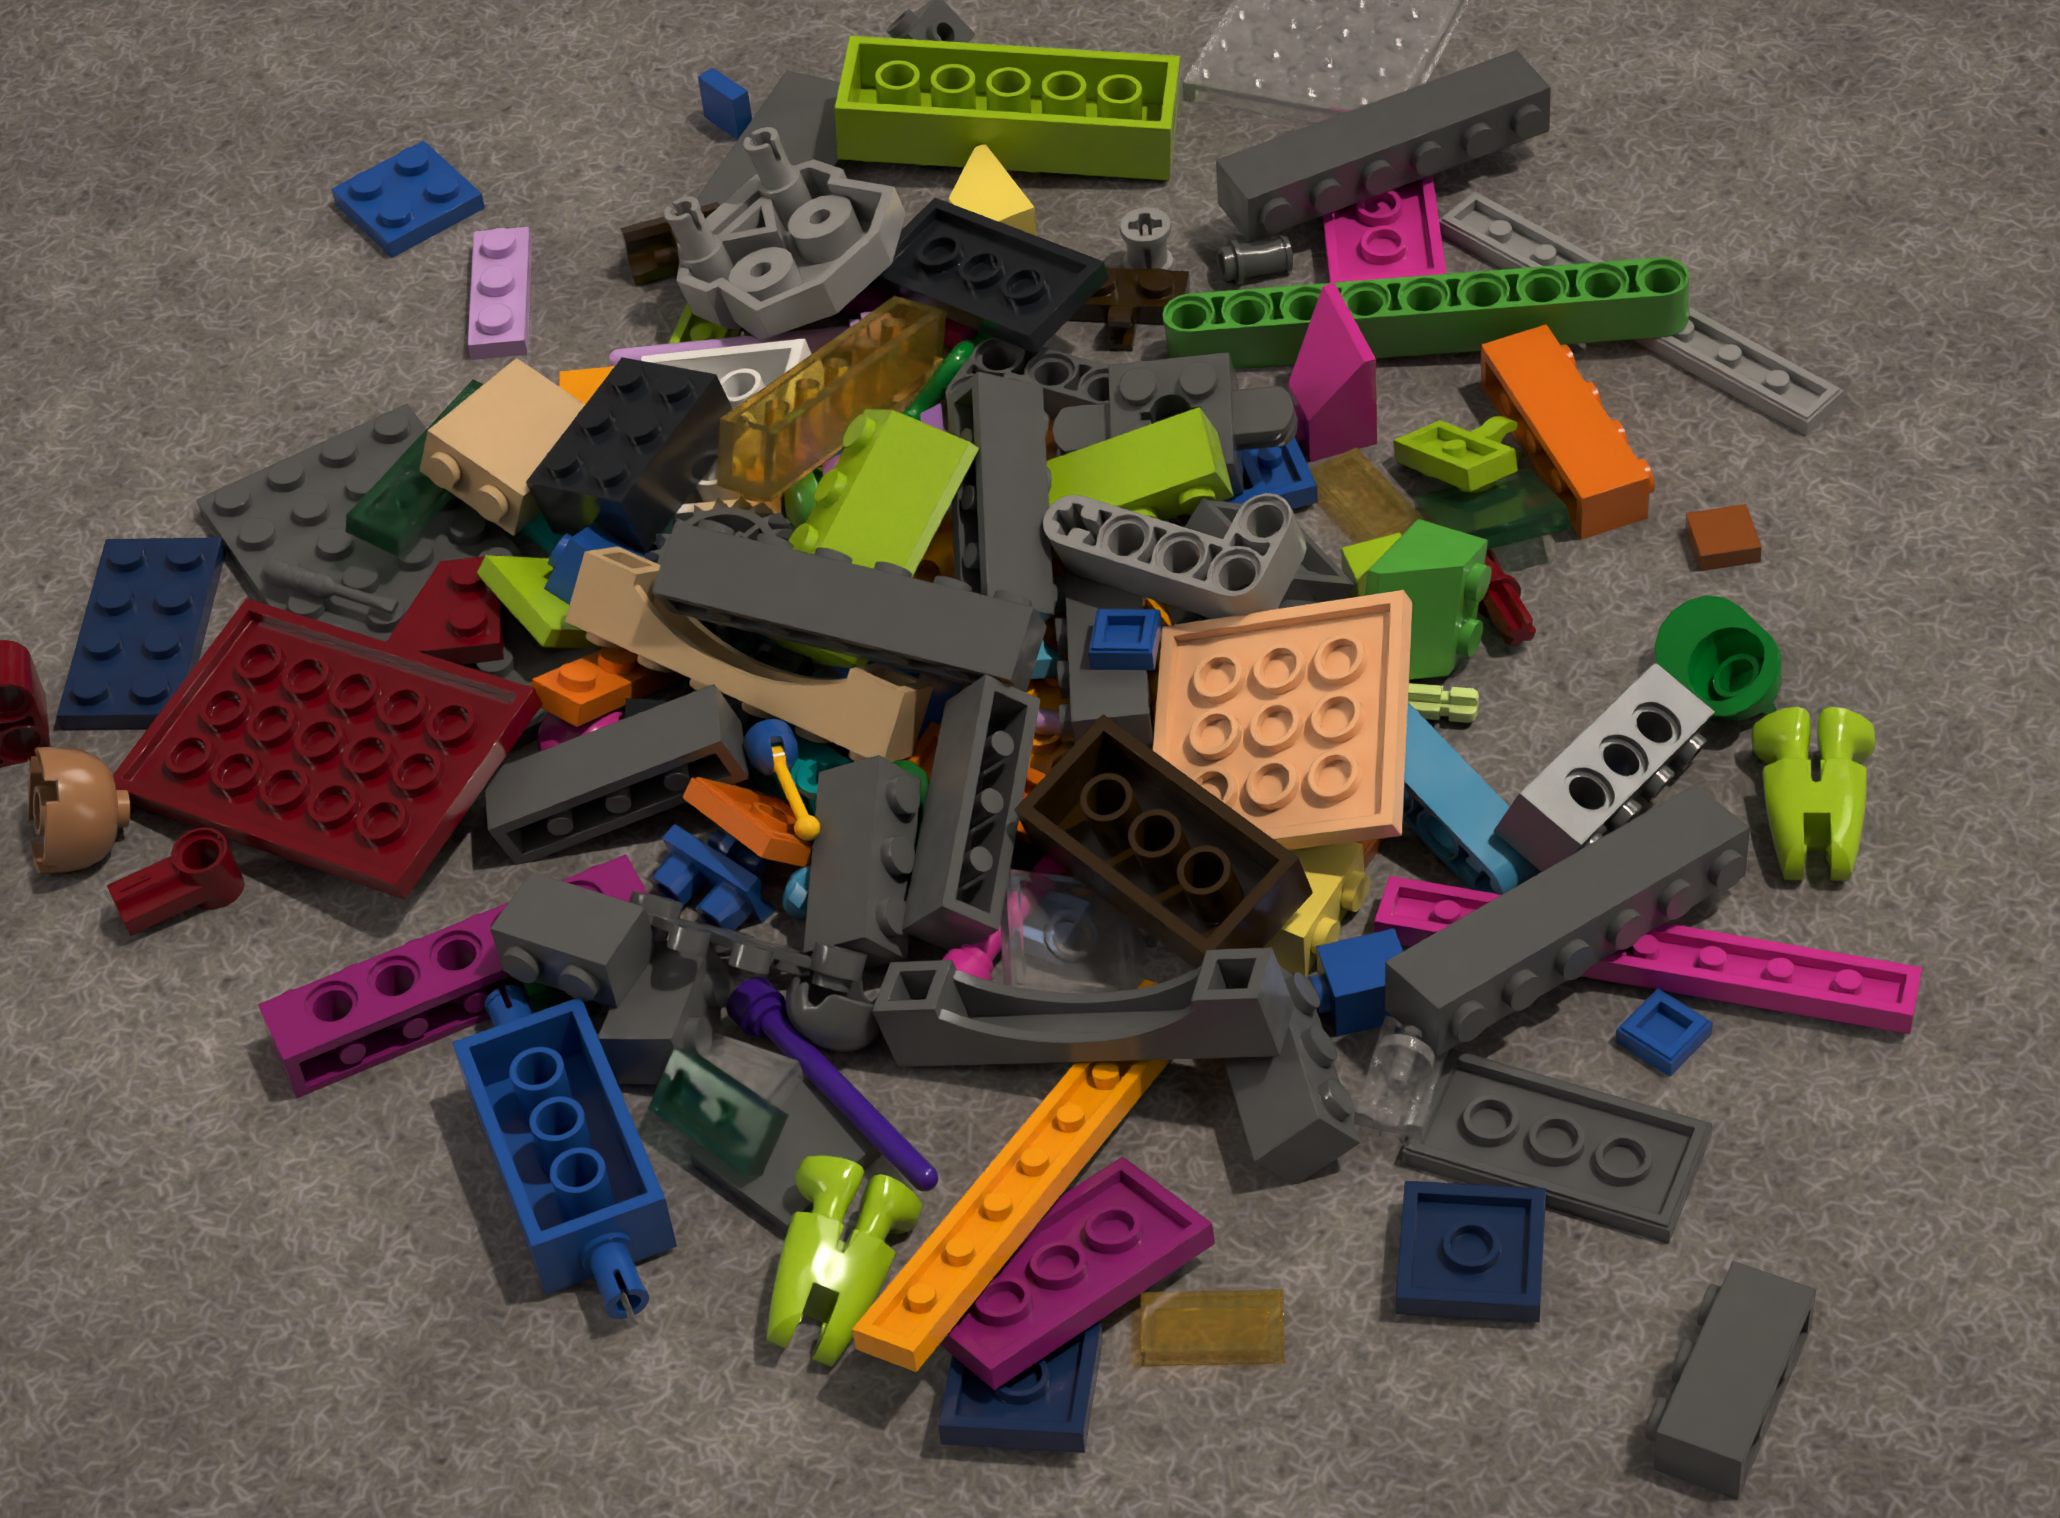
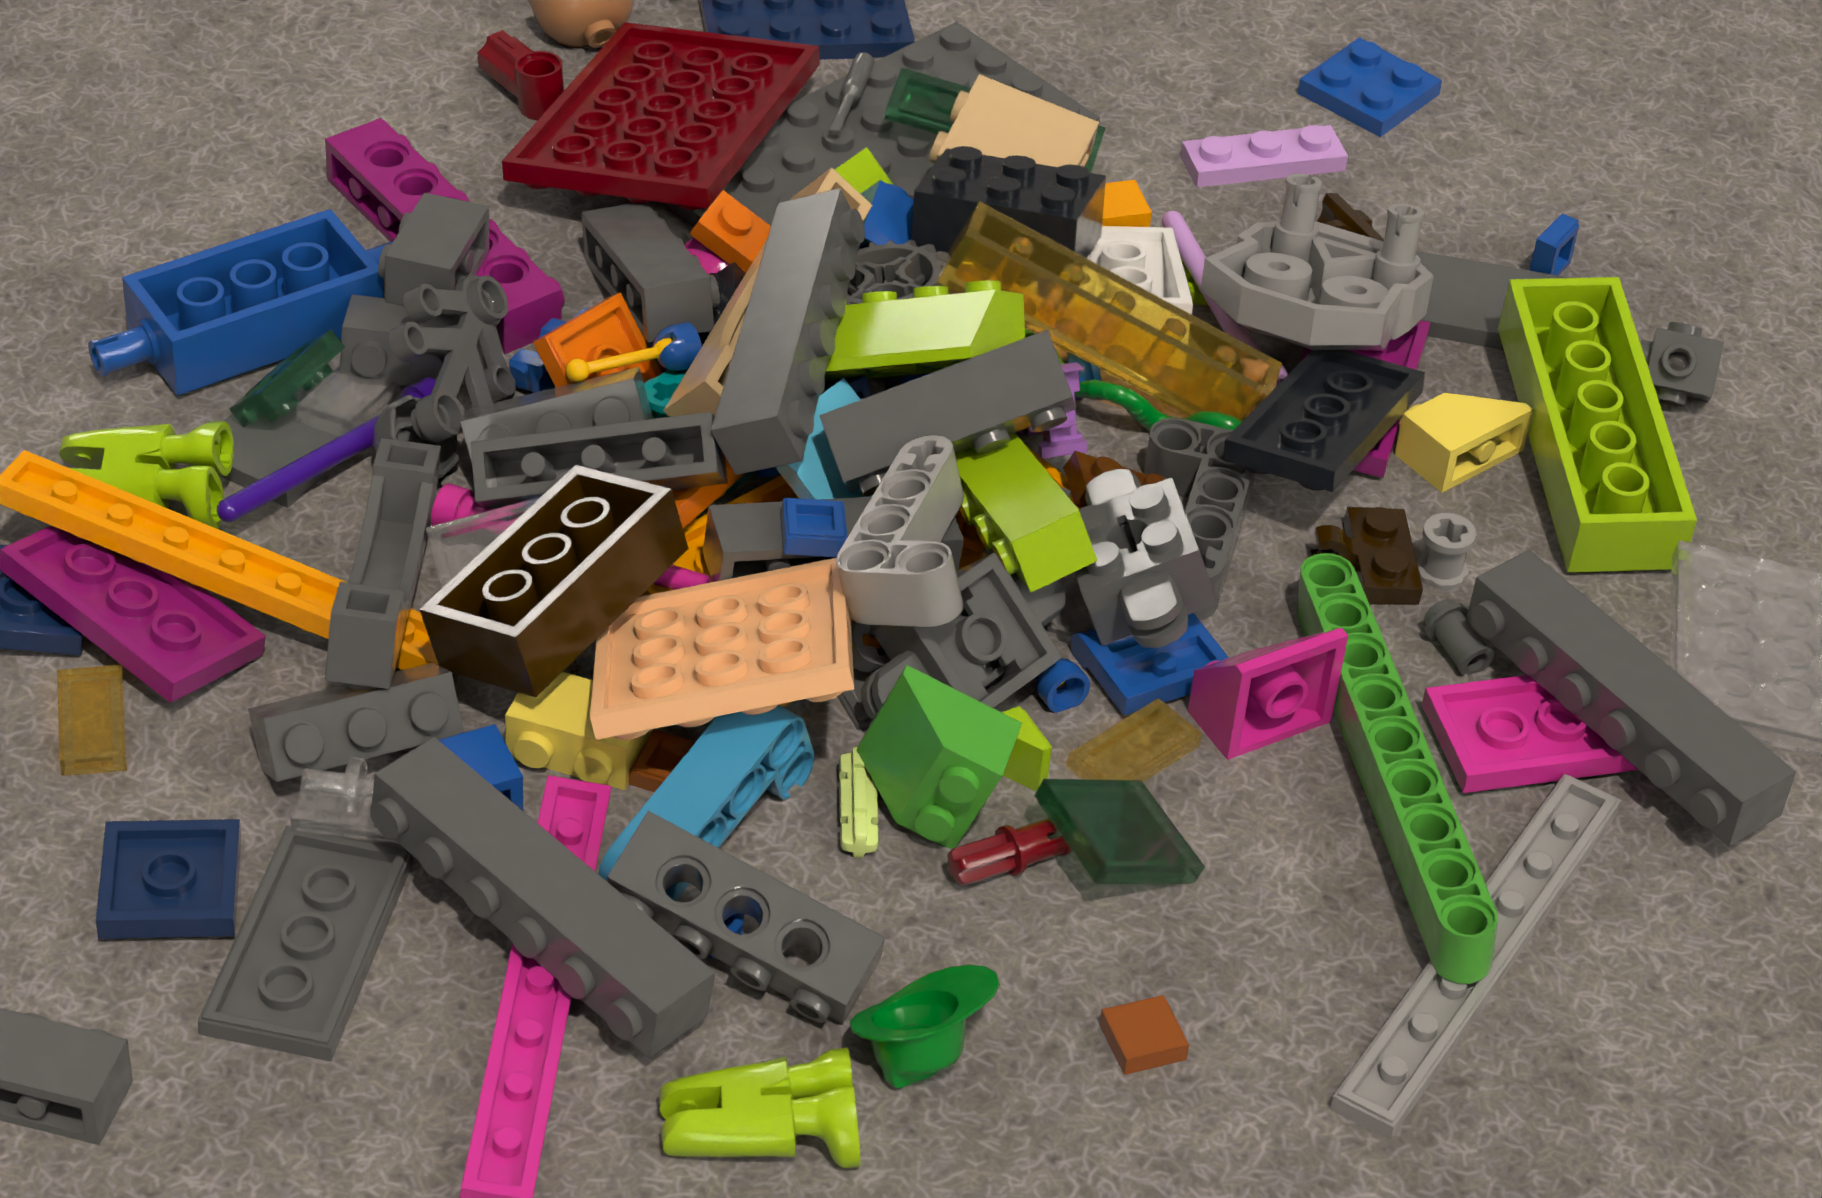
camera: 70 degrees right, 5 degrees down
(454, 616) = (808, 154): dark red wing -> none
(1460, 456) = (1196, 798): lime plate -> none
(1566, 431) = (1256, 885): orange brick -> none
(1663, 1032) = (451, 1014): blue tile -> none

